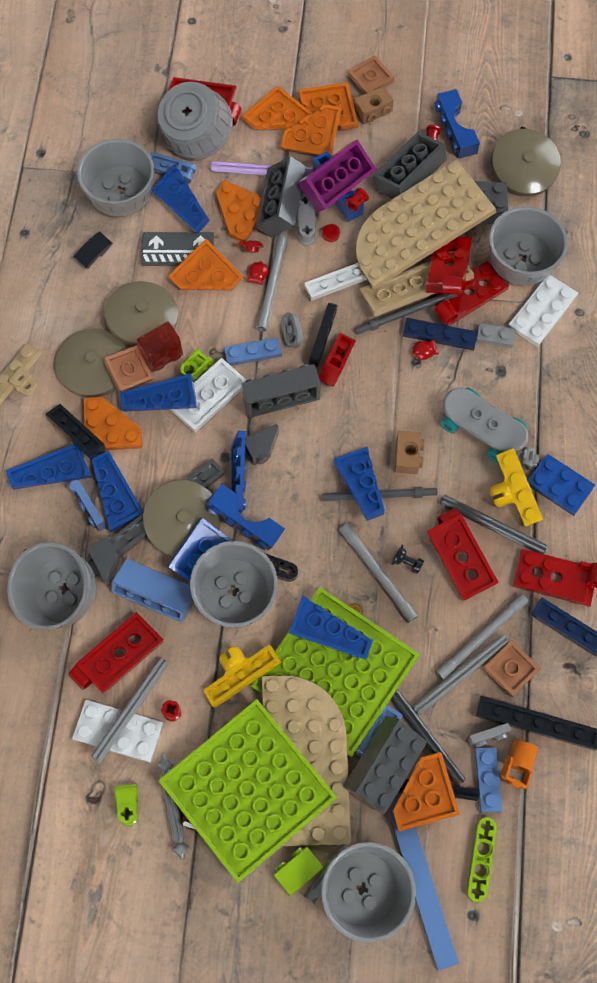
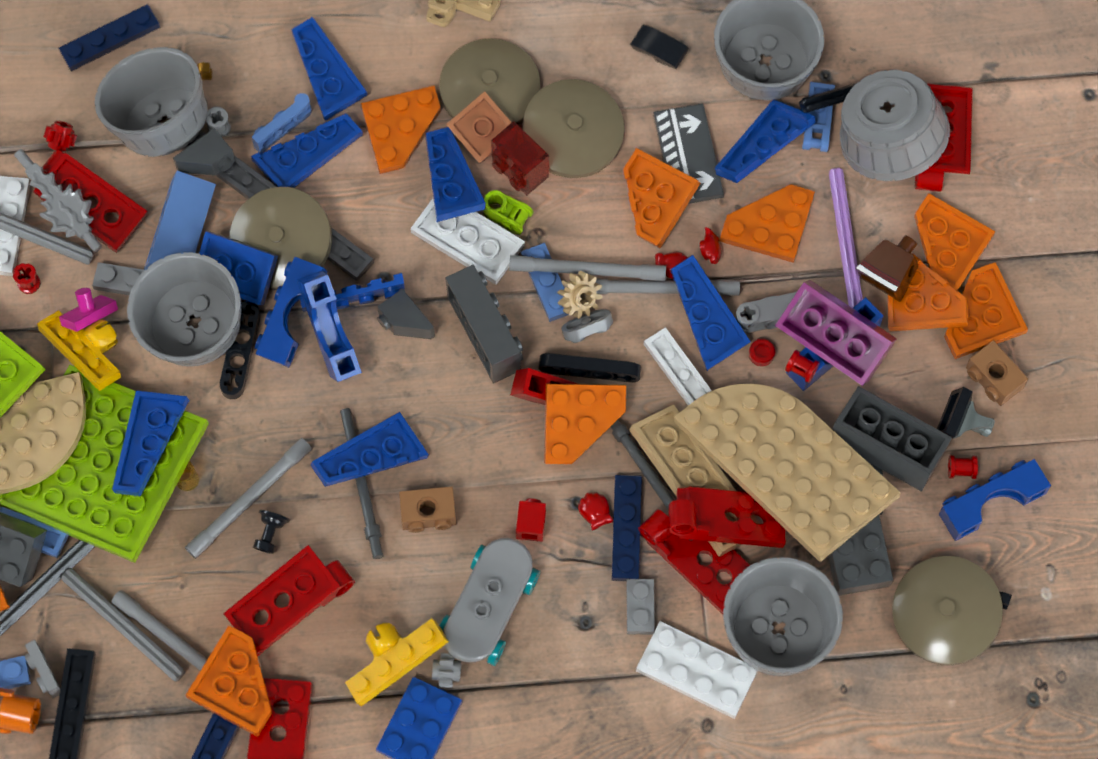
camera: 80 degrees right, 0 degrees up
(56, 669) = (60, 135): none -> red gear
(75, 431) = (379, 84): black plate -> none
(76, 545) = (218, 119): none -> light grey bush
(122, 670) = (64, 208): none -> light grey piece
(160, 147) = (825, 99): none -> black axle
(186, 641) = (115, 278): none -> light grey plate
(212, 664) = (88, 310): none -> dark pink tile
(262, 287) = (532, 264): none -> light grey piece
(271, 327) = (579, 294): none -> tan gear
(280, 197) = (787, 266): dark grey brick -> none
(285, 490) = (323, 314): none -> blue arch
(293, 141) = (890, 267): none -> reddish brown torso
(304, 254) = (710, 319): none -> blue wing
(360, 344) = (578, 417): none -> orange plate
(370, 75) = (1051, 362): nougat plate -> none
(399, 130) = (961, 416): none -> black piece
(427, 388) = (531, 520): none -> red brick
(494, 525) = (341, 640): dark grey axle -> none
(511, 668) = (138, 688): nougat plate -> none
(521, 597) = (233, 683): none -> orange plate

